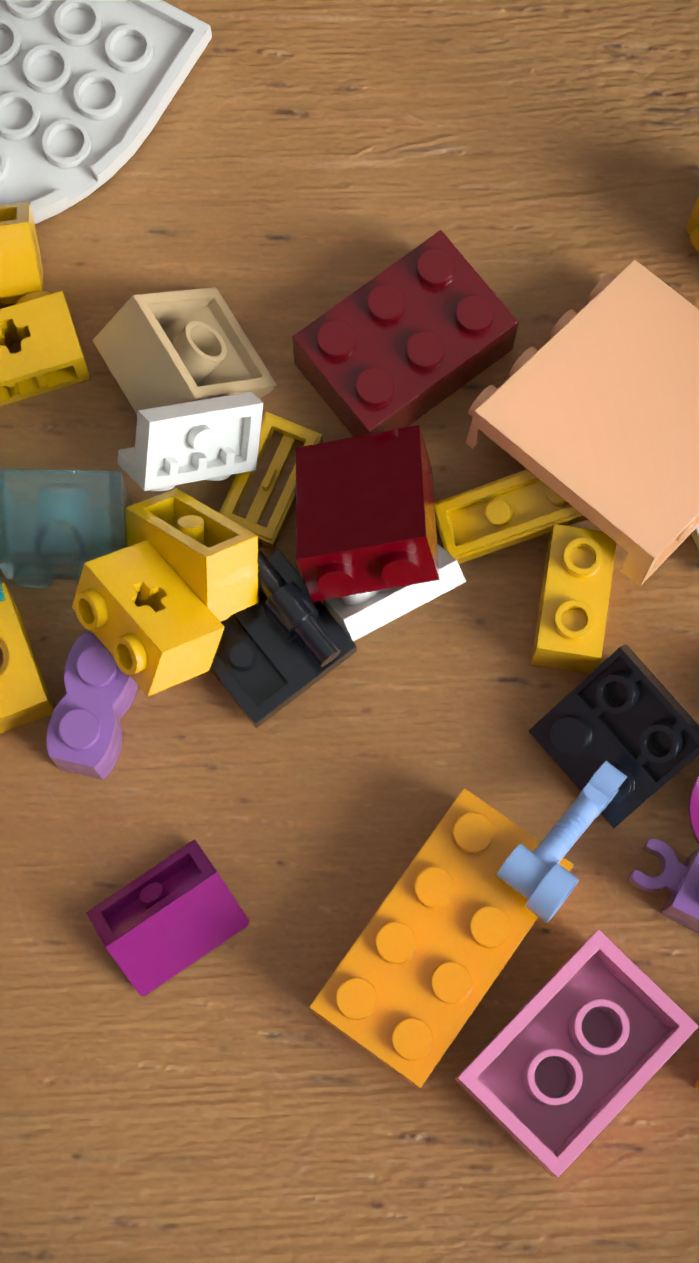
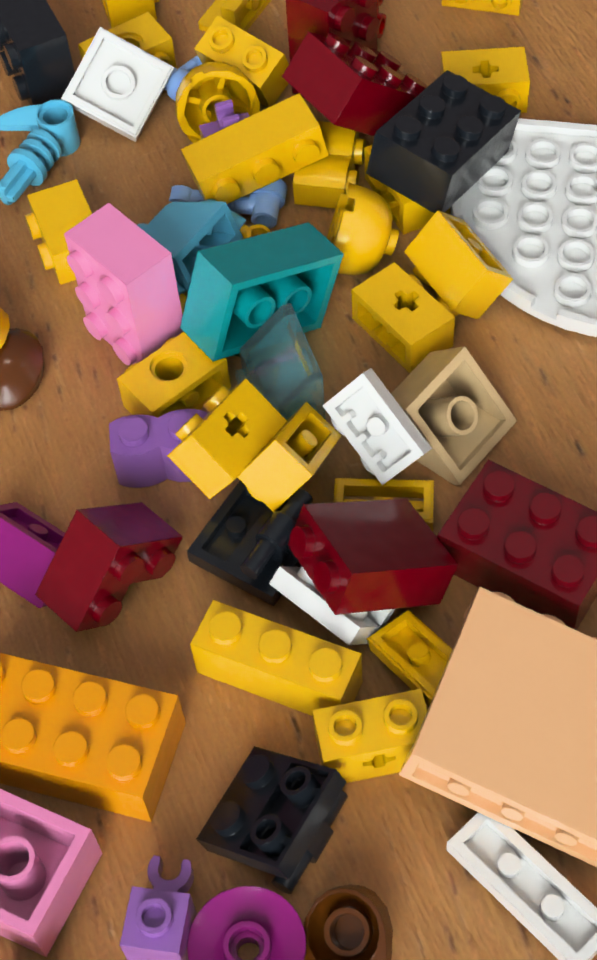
camera: 75 degrees right, 20 degrees down
(245, 819) = (101, 558): none -> dark red brick
(444, 668) = (274, 660): none -> yellow brick
(537, 873) = (116, 760): light blue brick -> none

